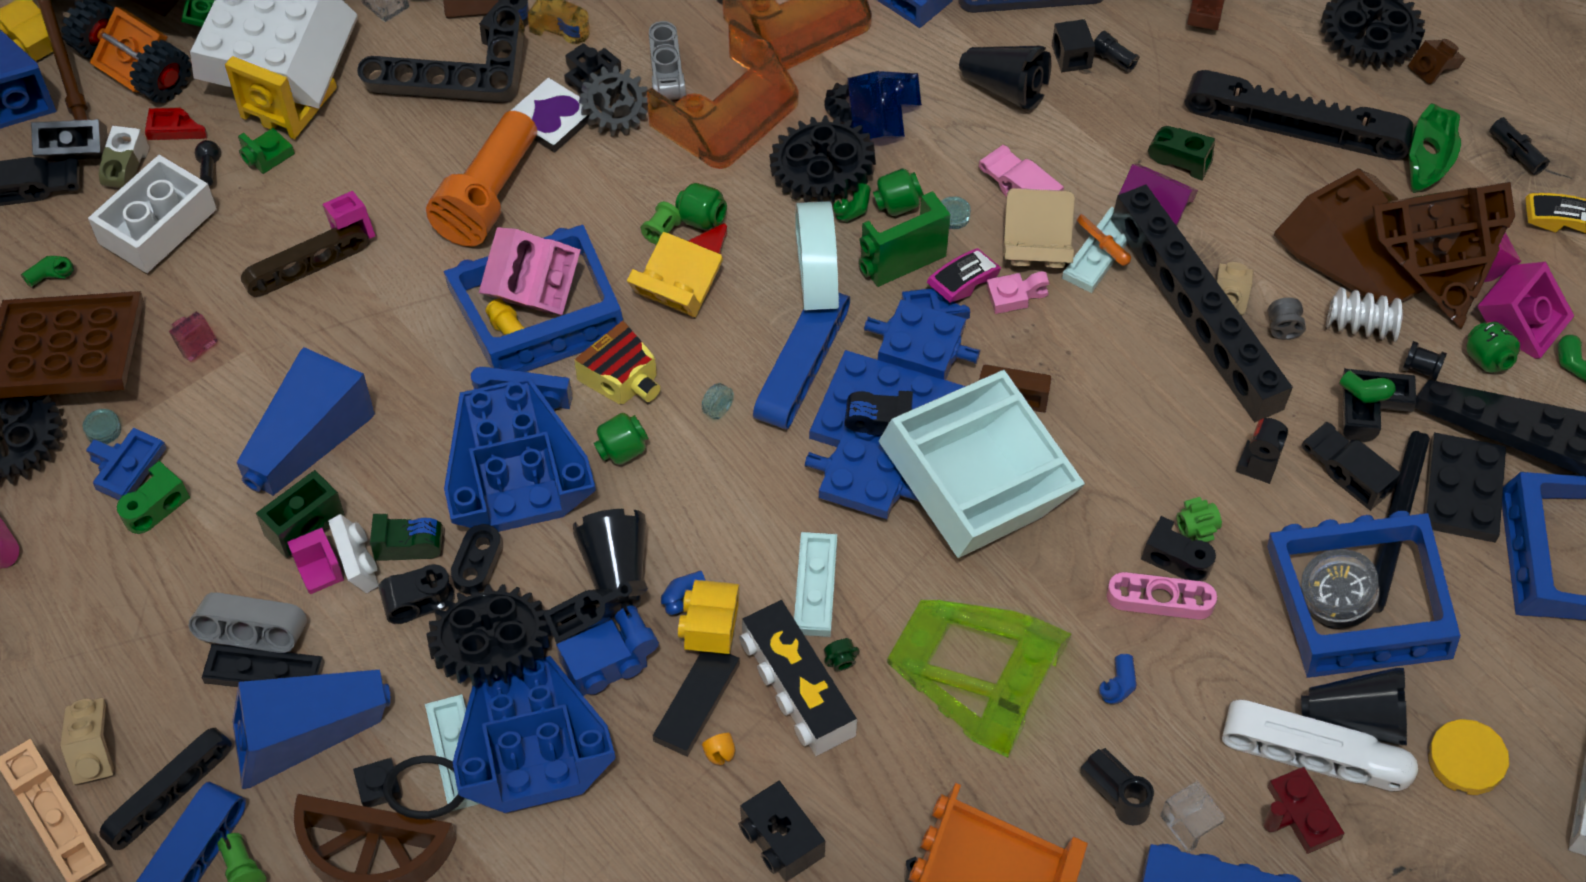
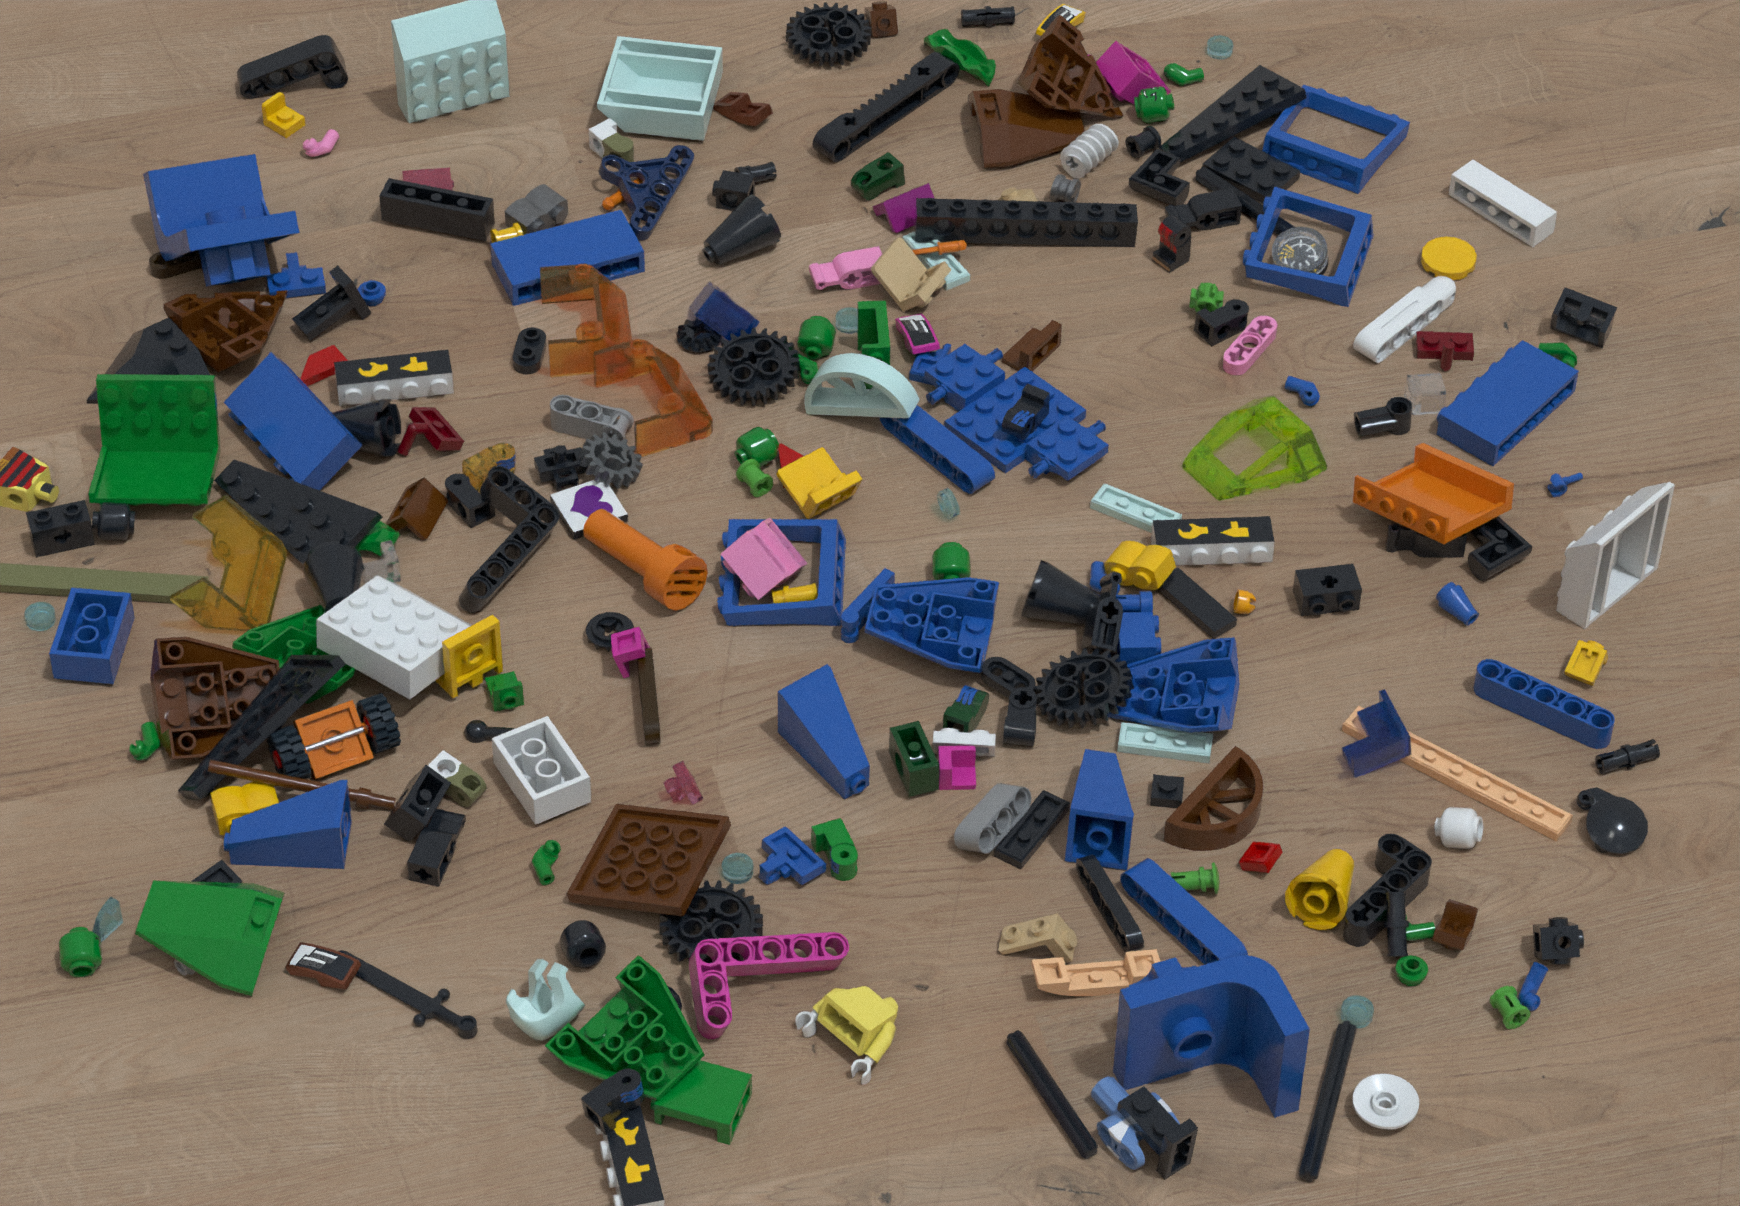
camera: 65 degrees left, 10 degrees down
(172, 125) = (428, 744): red tile -> none
(378, 187) = (607, 623): none -> black gear
(413, 813) = (1191, 772): black tyre -> none
(619, 366) = (882, 544): torso -> none
(841, 654) = (1205, 511): dark green plate -> none
(980, 462) = (1104, 377): light aqua slope -> none
(1012, 293) = (947, 318): bright pink plate -> none
(1364, 704) = (1395, 276): black cone -> none
(1368, 390) = (1159, 173): green arm -> none

